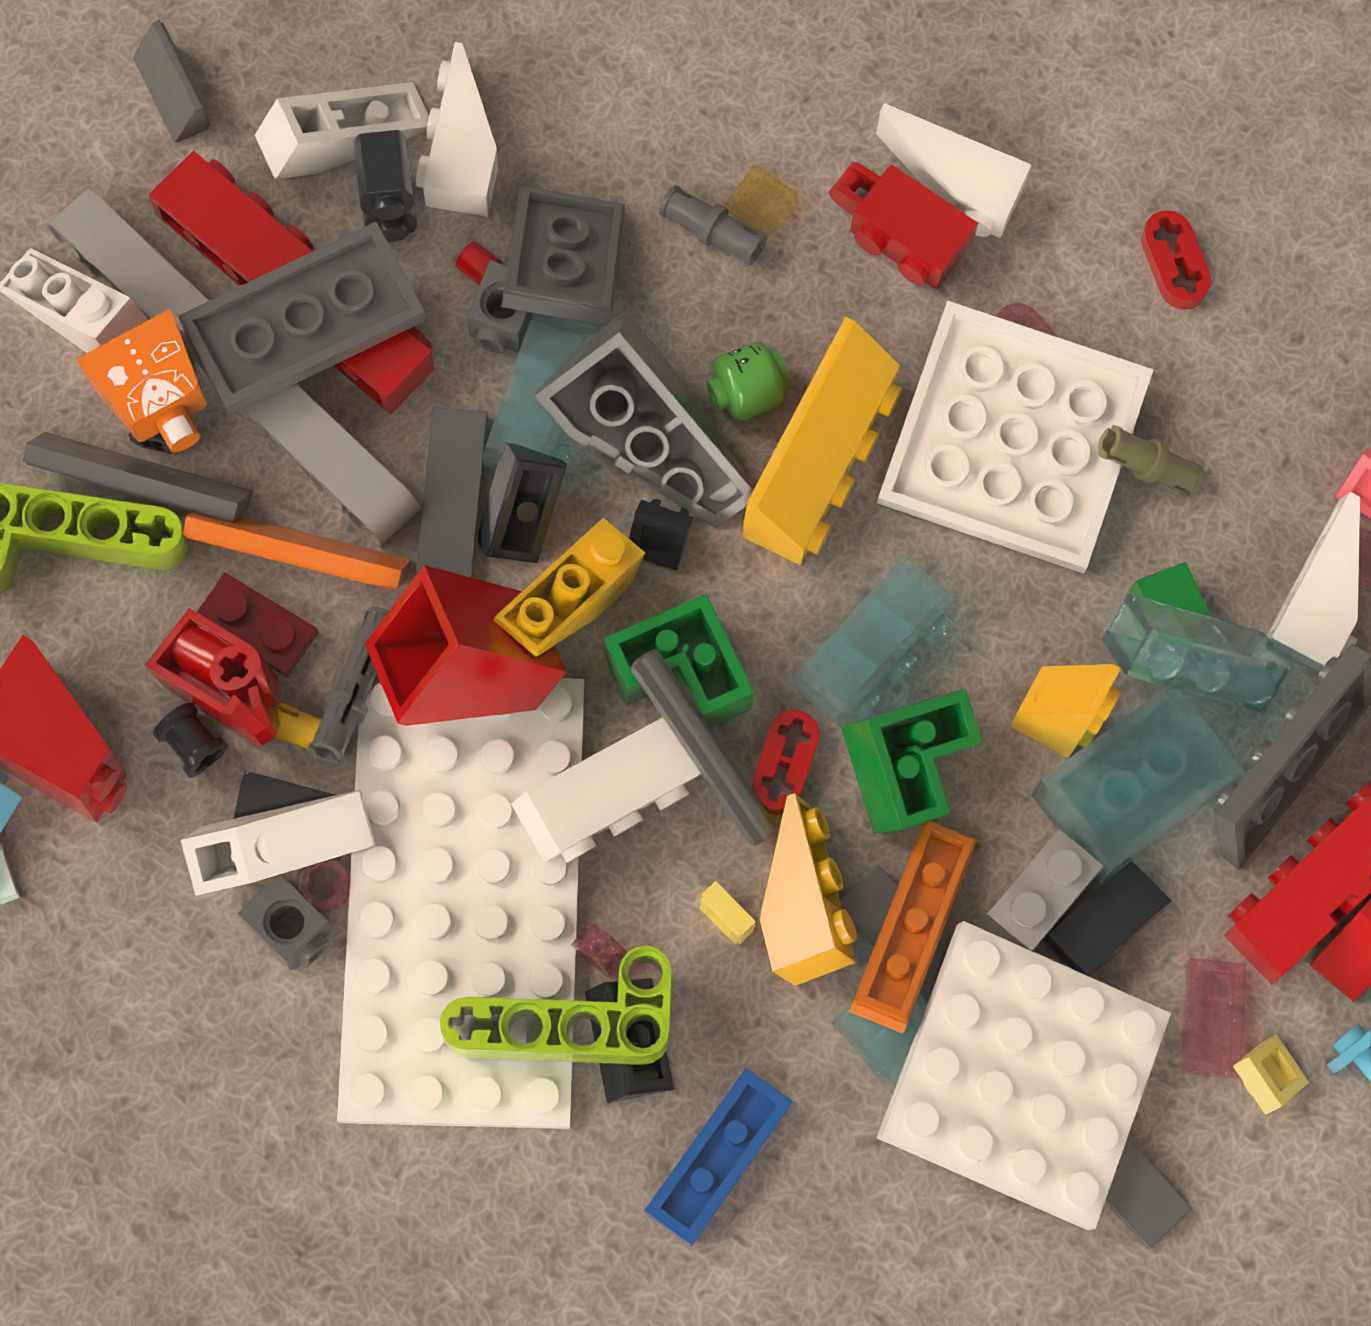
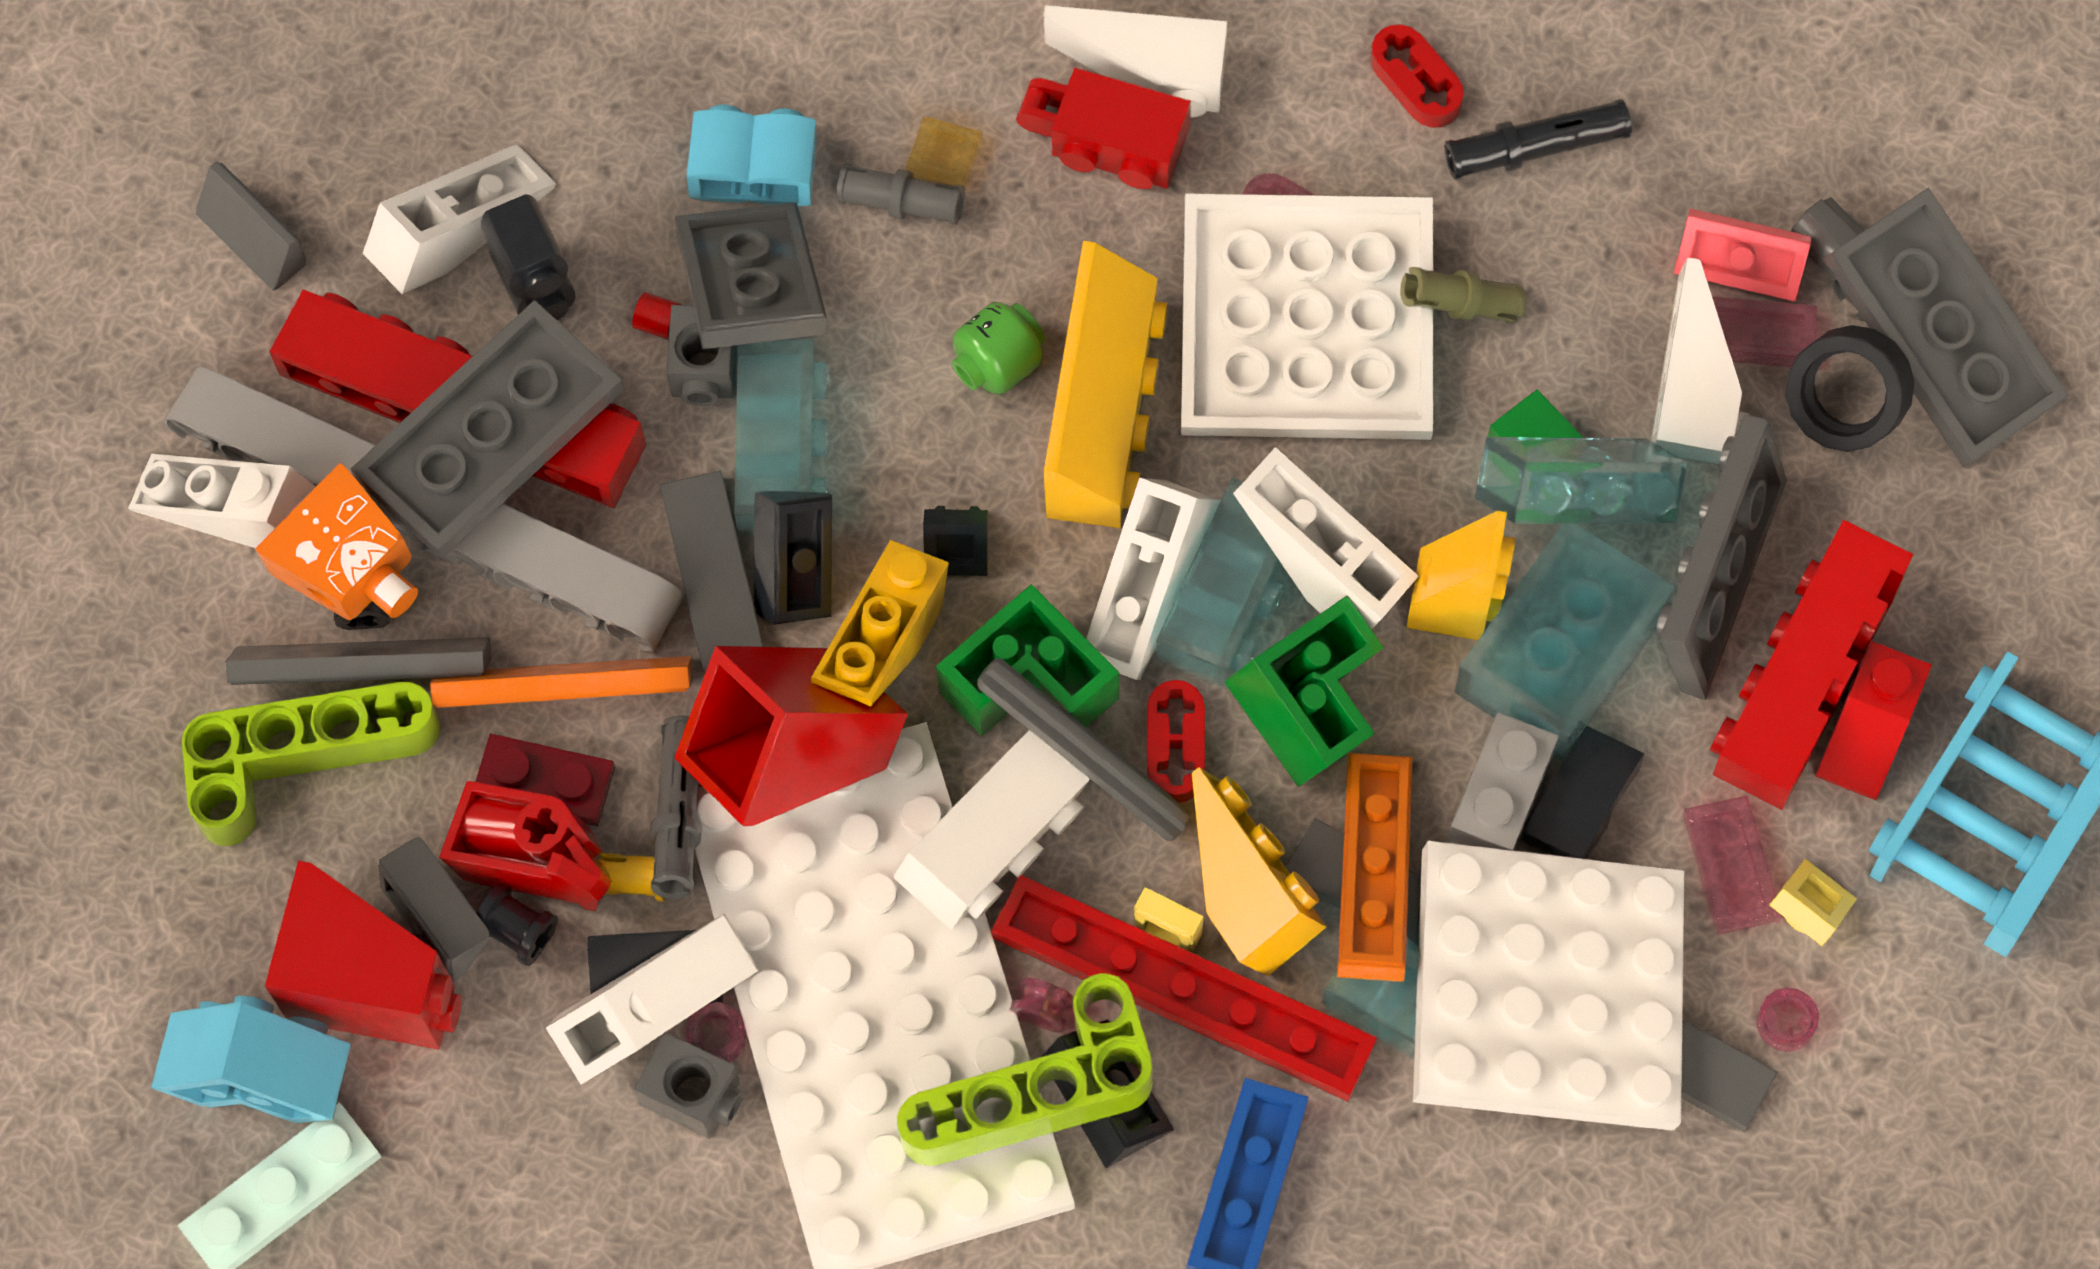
camera: 10 degrees left, 5 degrees down
(128, 703) = (432, 905): none -> dark grey slope
(463, 152) = (601, 197): white slope -> none
(600, 154) = (751, 156): none -> medium azure brick
(638, 412) = (887, 416): dark grey wedge -> none
(722, 974) = (1186, 988): none -> red plate
(809, 611) = (1148, 571): none -> white slope
(960, 636) = (1321, 542): none -> white slope
(1232, 1172) = (1807, 1022): none -> clear pink bush
(1262, 346) = (1515, 144): none -> black pin

